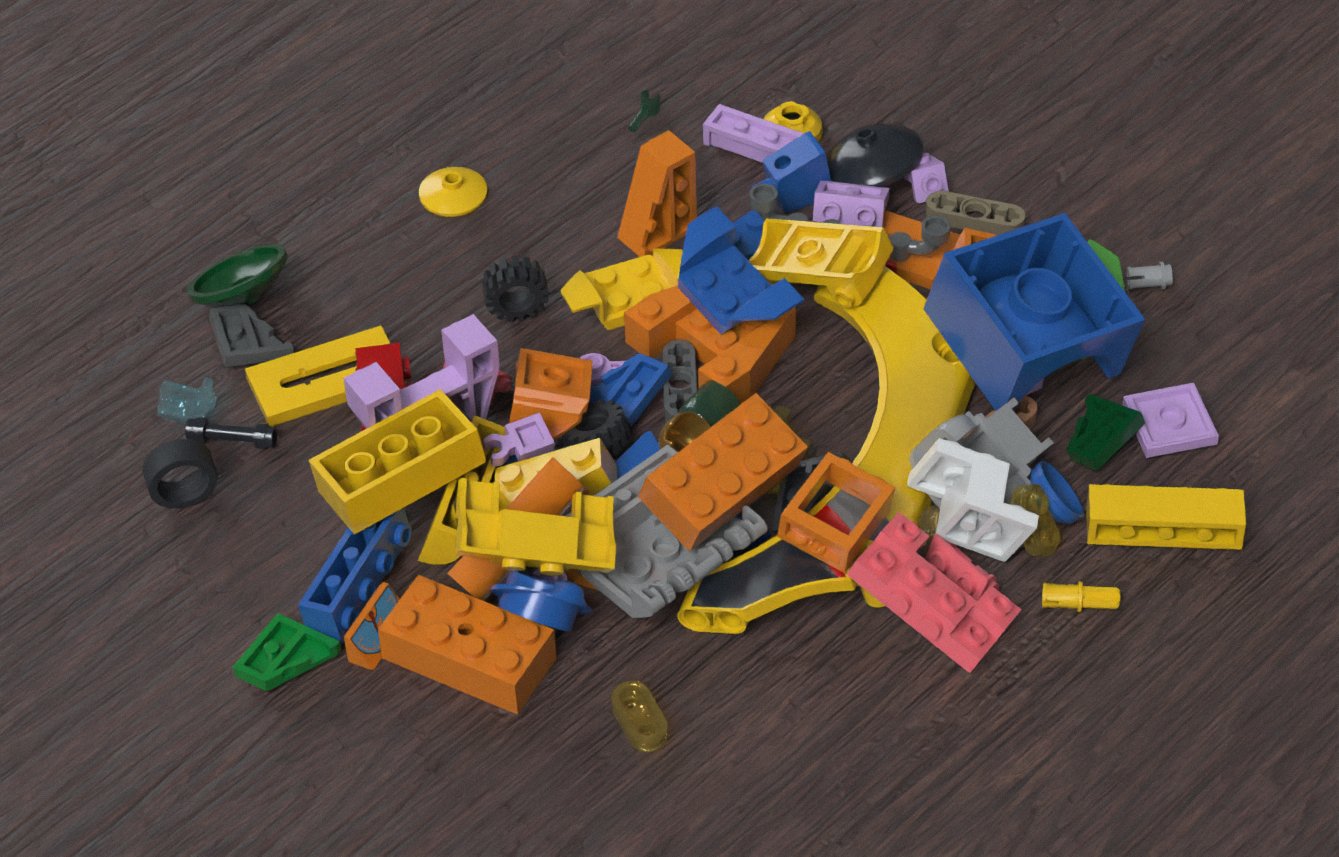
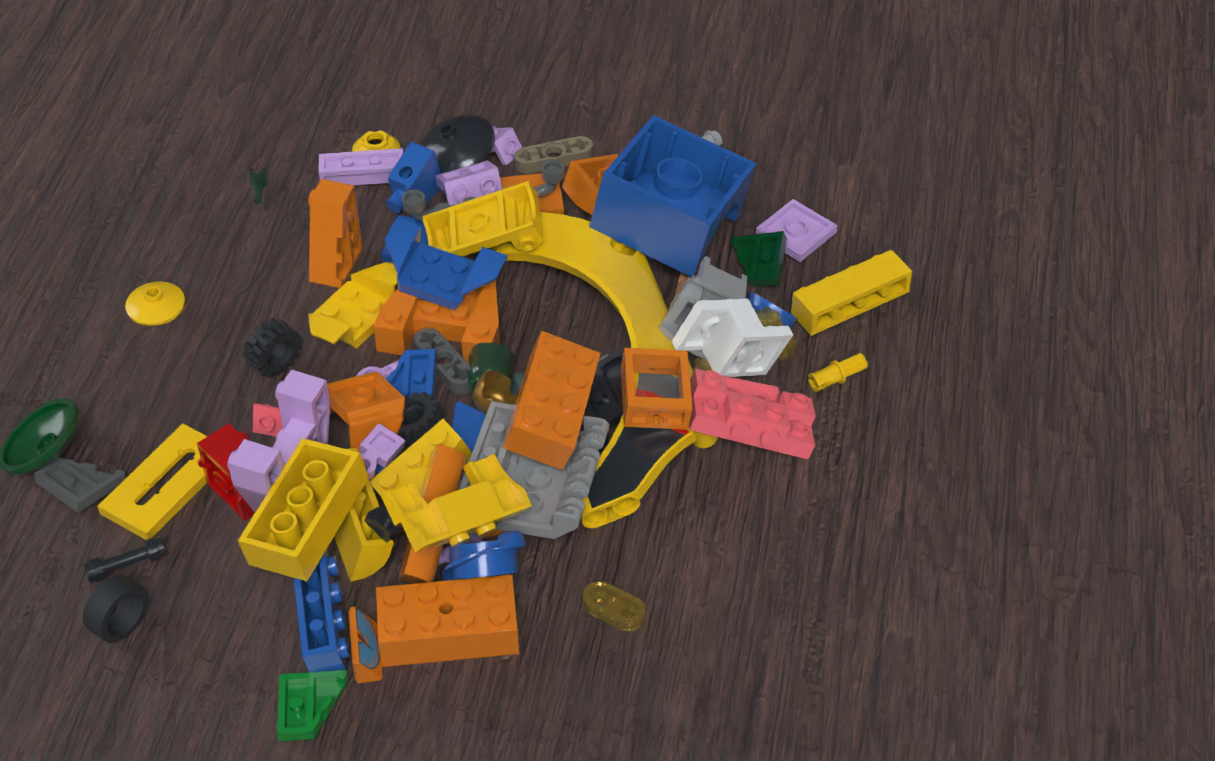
camera: 35 degrees left, 0 degrees up
(184, 402) = (70, 554): clear light blue bracket -> none

